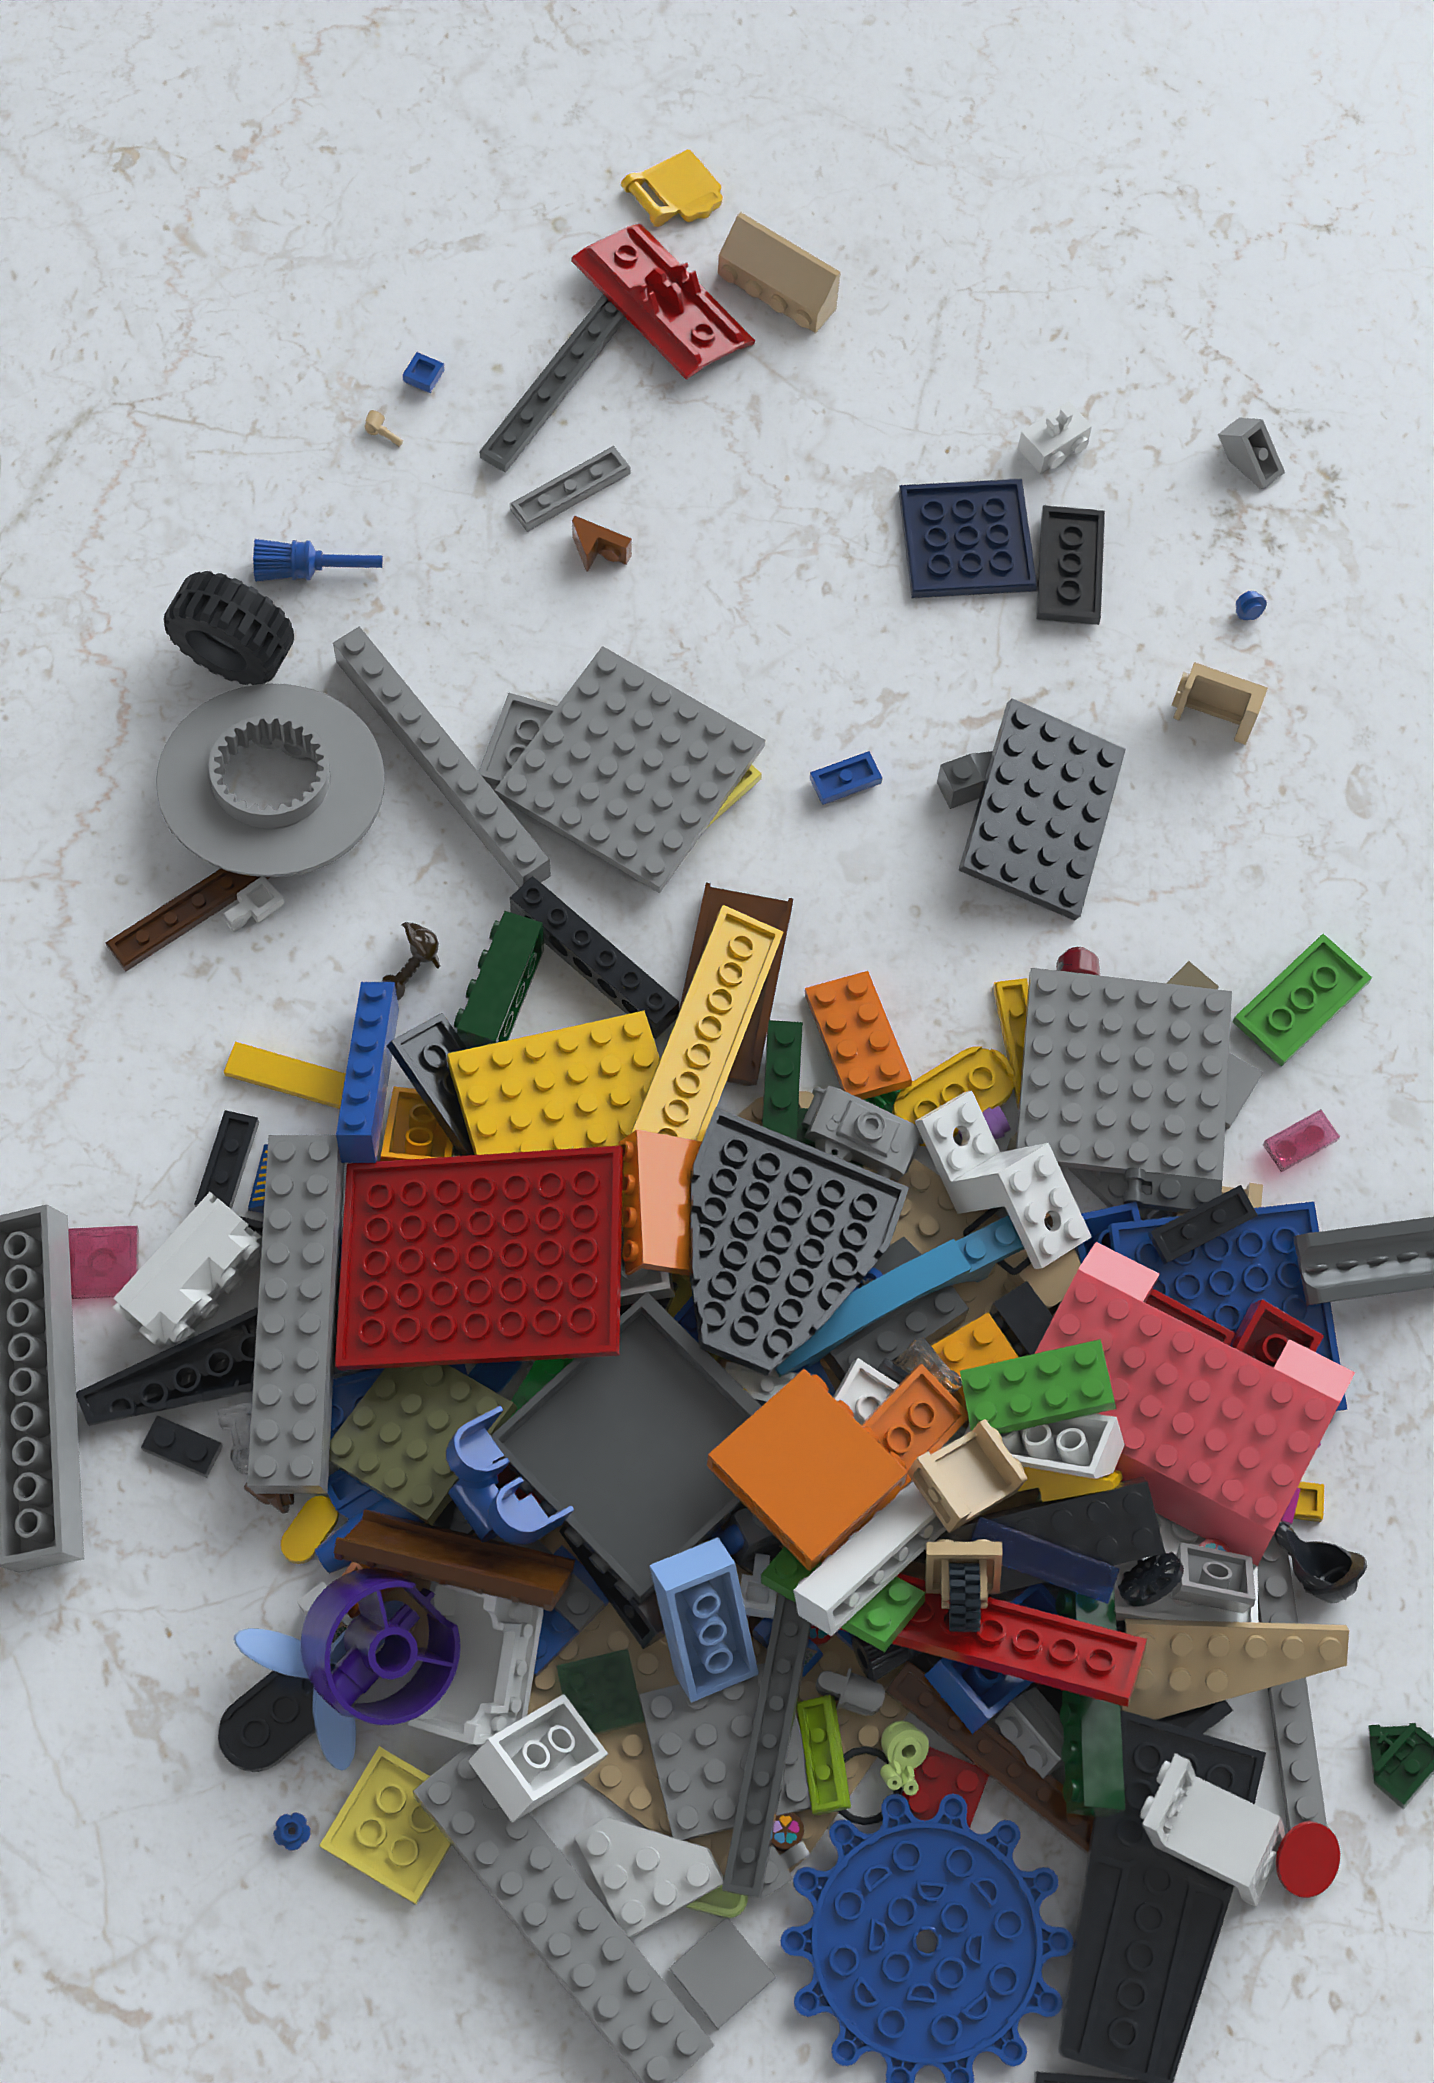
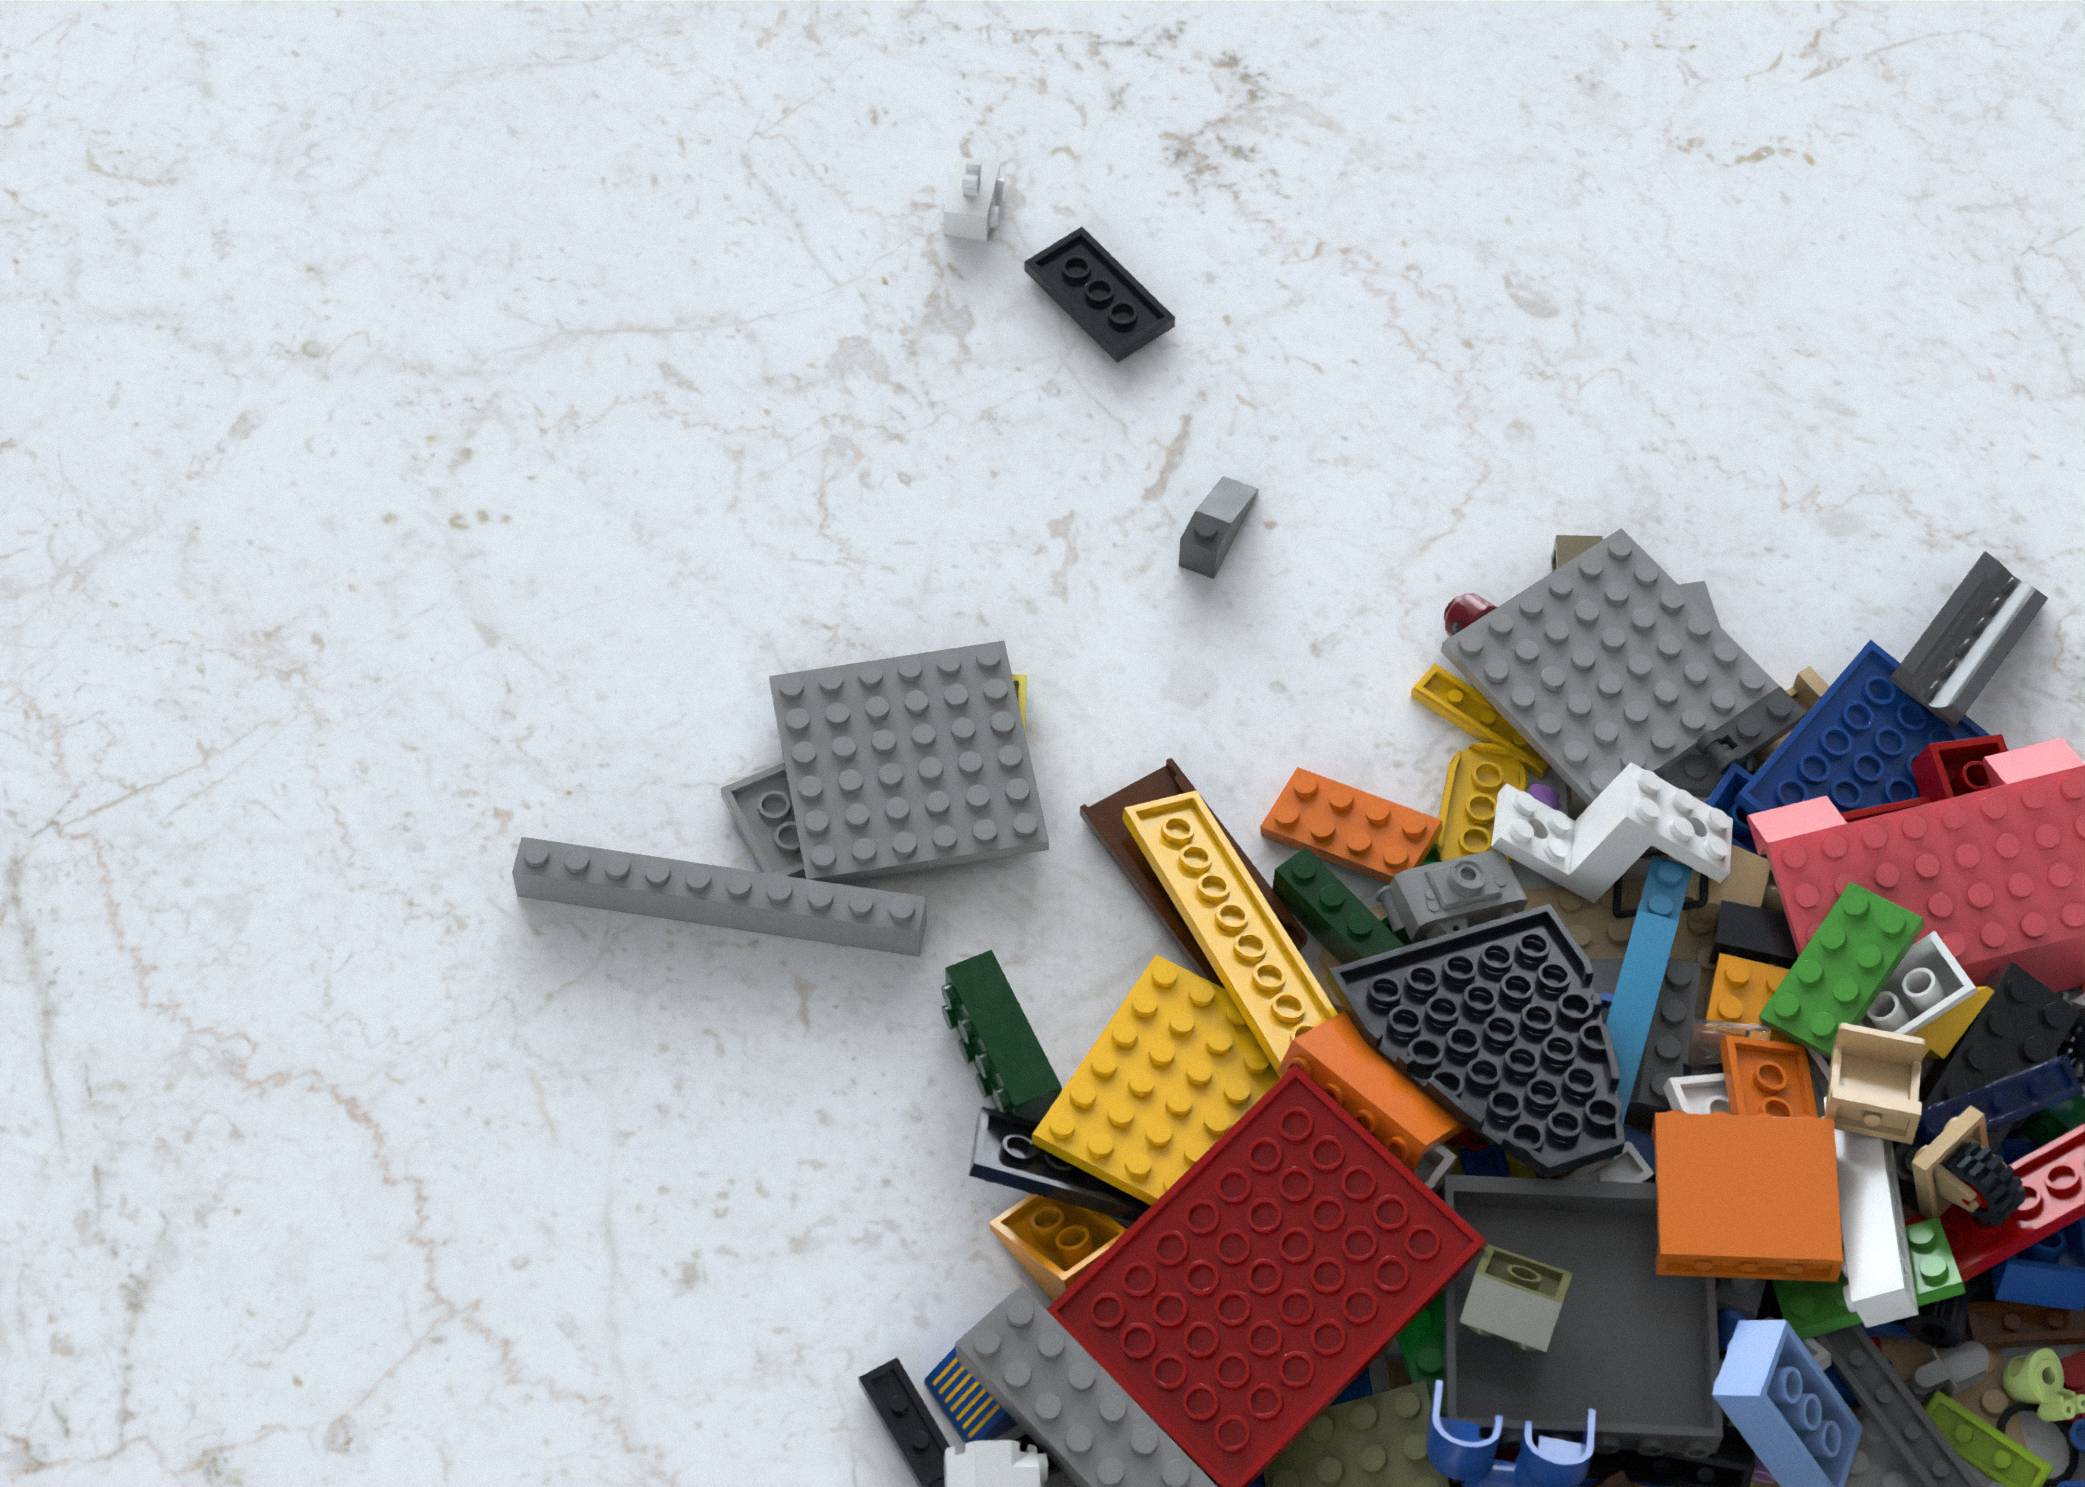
camera: 40 degrees left, 10 degrees down
(177, 917) = (631, 1183): reddish brown tile -> none
(229, 628) = (405, 932): black tyre -> none
(255, 900) = (680, 1167): white plate -> none
(281, 840) = (612, 1113): light grey piece -> none
(285, 1075) = (886, 1295): yellow tile -> none
(301, 560) = (390, 828): blue piece -> none
(367, 1073) = (971, 1215): blue brick -> none
(374, 426) = (327, 657): tan hand -> none
(423, 372) = (326, 572): blue plate -> none
(423, 948) = (889, 1074): dark brown piece -> none
(552, 385) = (463, 479): dark grey plate -> none
(570, 488) = (577, 570): light grey tile -> none
(595, 540) = (651, 595): dark orange slope -> none
(595, 956) = (1053, 950): black brick -> none
(603, 1401) = (1515, 1299): none -> olive slope
(662, 299) = (488, 340): red hinge -> none
(680, 184) = (396, 231): yellow piece -> none
(779, 273) = (579, 236): tan slope -> none
(845, 777) = (1101, 621): blue plate -> none
(967, 538) = (984, 341): dark blue tile -> none
(1042, 809) = (1301, 511): plate -> none
(1202, 1224) = (1812, 729): black plate -> none
(1221, 697) = (1352, 300): tan panel -> none
(1250, 605) = (1285, 213): blue plate -> none
(1252, 450) = (1149, 86): light grey slope -> none
(1301, 1140) = (1792, 610): clear pink plate -> none
(1302, 999) = (1671, 496): bright green plate -> none

